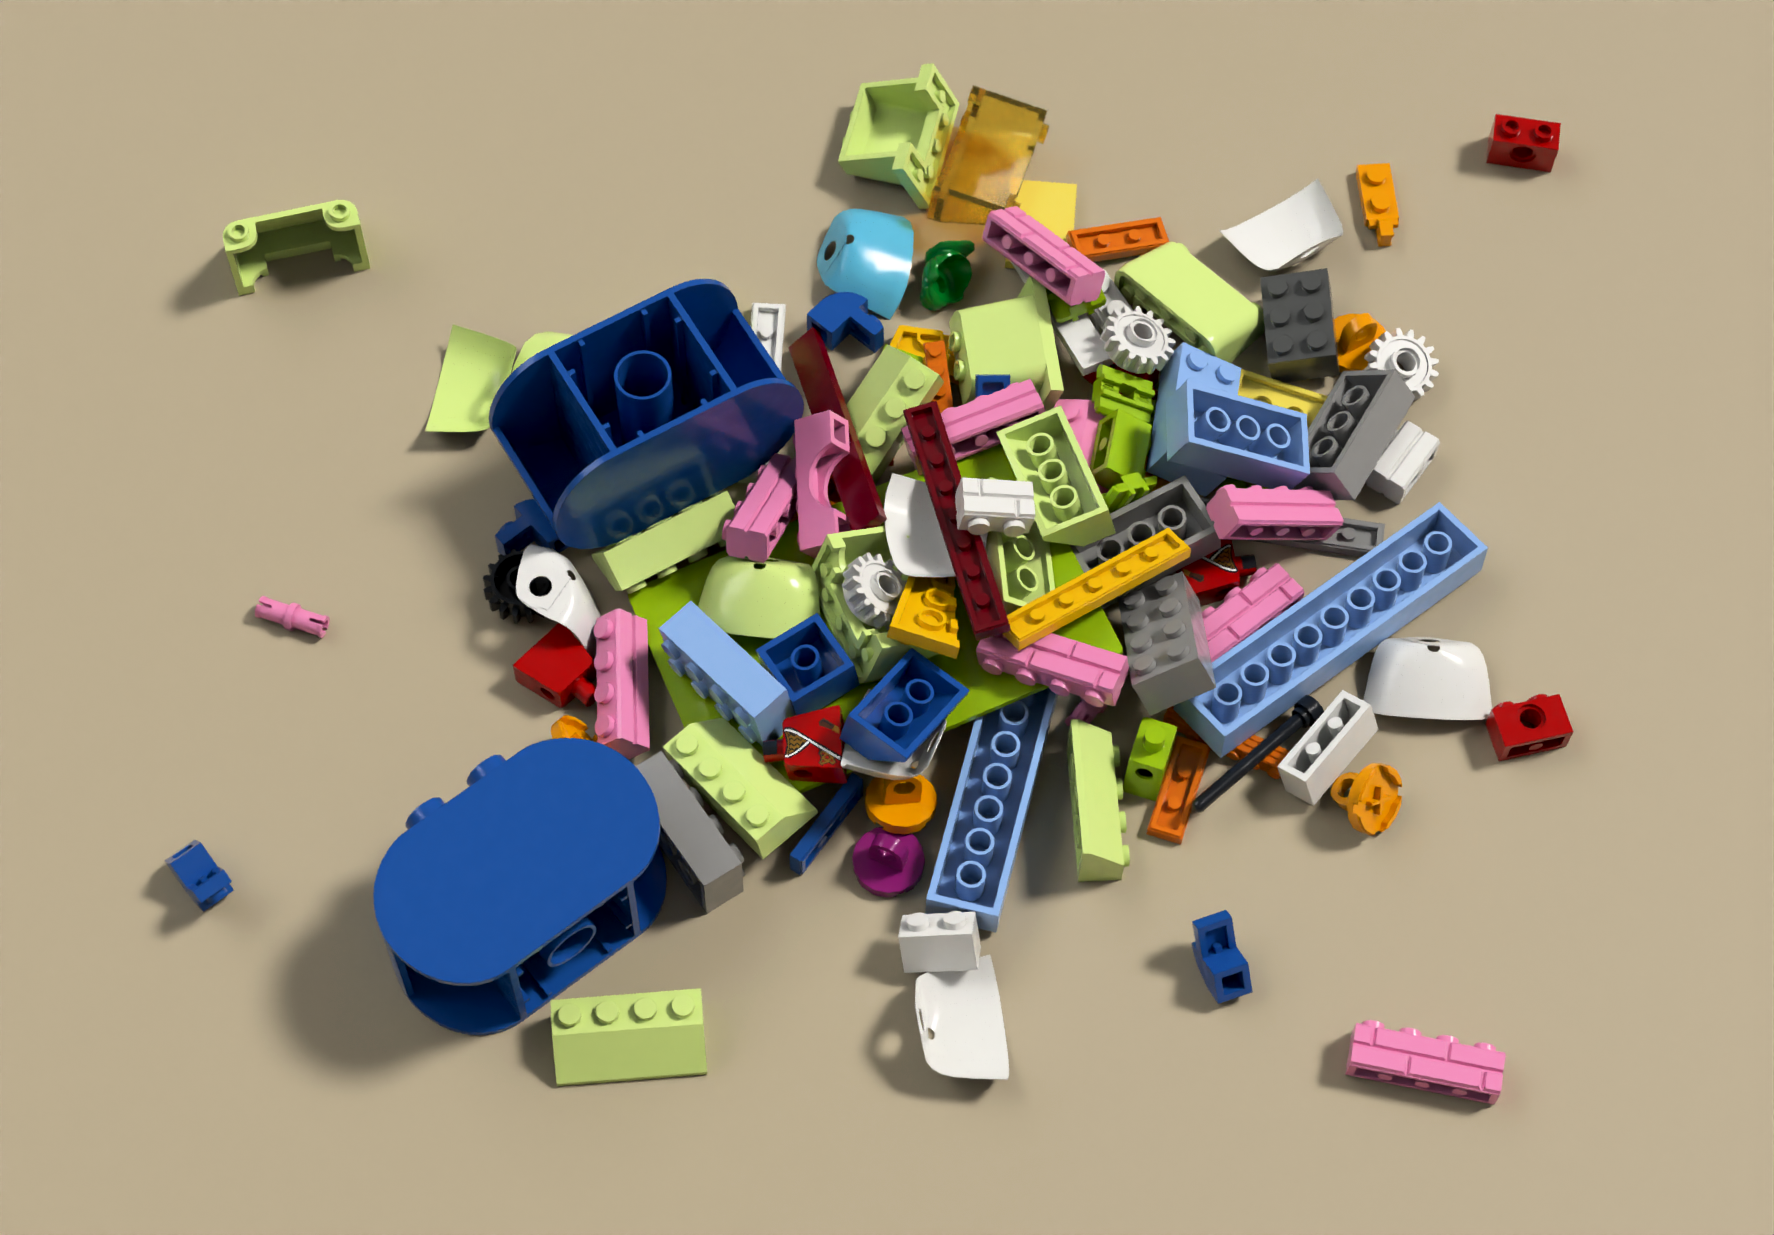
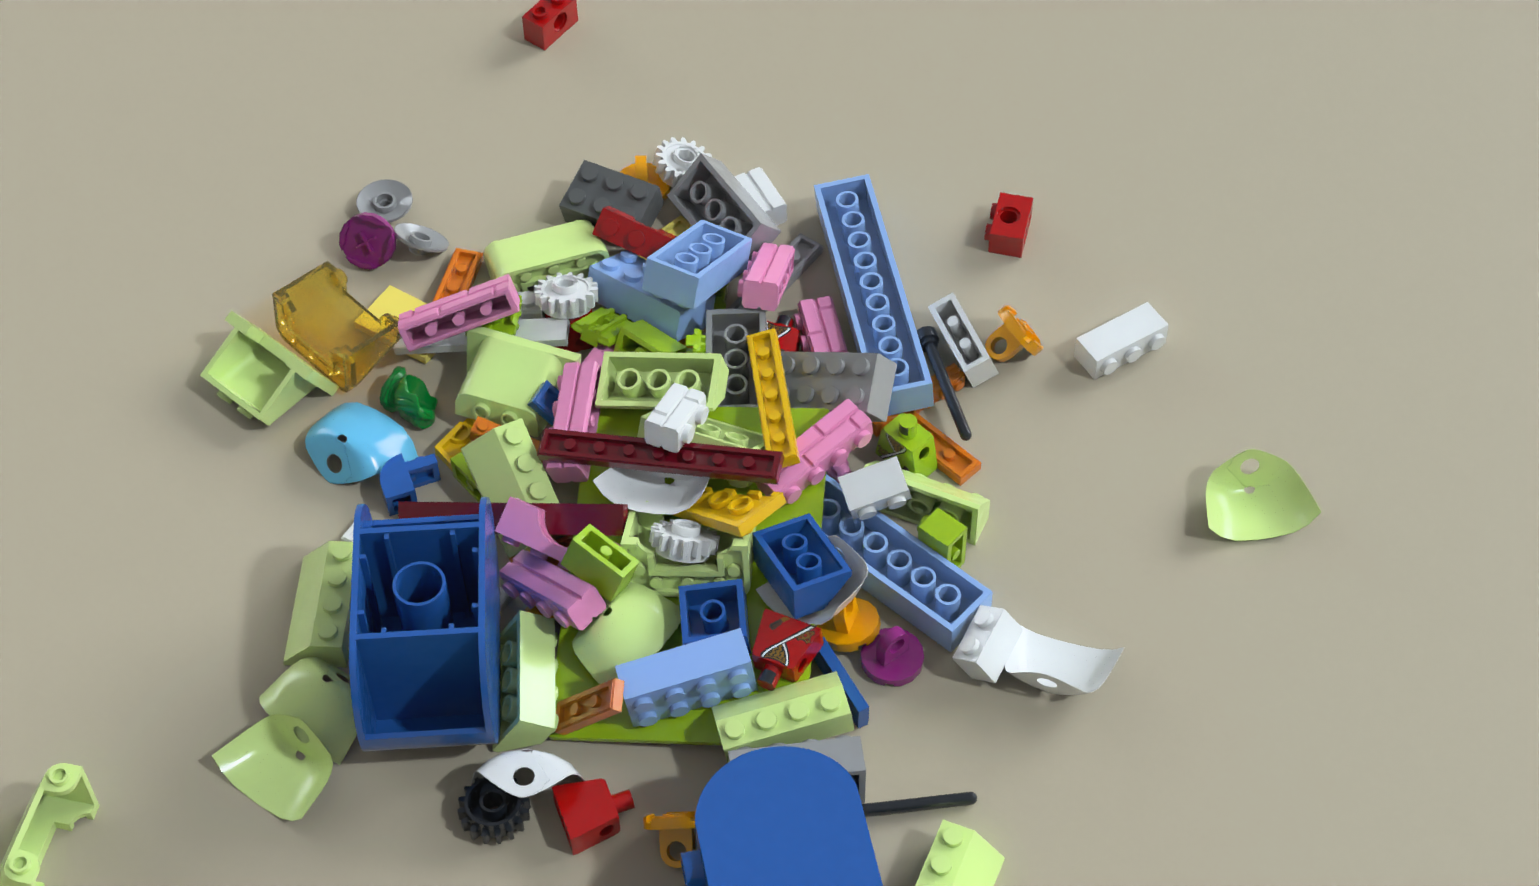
camera: 60 degrees left, 10 degrees down
(528, 527) = (445, 770): blue brick -> none
(622, 683) = (634, 769): bright pink brick -> none
(651, 605) = (590, 706): none -> orange tile
(671, 887) = (919, 804): none -> black piece
(799, 528) = (600, 562): none -> lime brick
(1038, 842) = (944, 536): none -> lime brick
(1047, 740) = (875, 488): none -> white brick
(1113, 135) = (367, 240): none -> magenta tile
(1149, 179) = (420, 238): none -> light grey dish
(1177, 113) = (385, 198): none -> light grey dish
(1218, 957) = (1093, 481): blue brick -> none
(1250, 344) = (630, 234): none -> red arch
(1274, 1142) = (1274, 509): none -> yellowish green piece
(1288, 230) = (522, 176): white piece -> none
(1378, 200) = (534, 120): light orange hinge -> none
(1425, 1062) = (1233, 397): bright pink brick -> none
(1427, 684) = (940, 265): white piece -> none
(1433, 912) = (1121, 340): none -> white brick

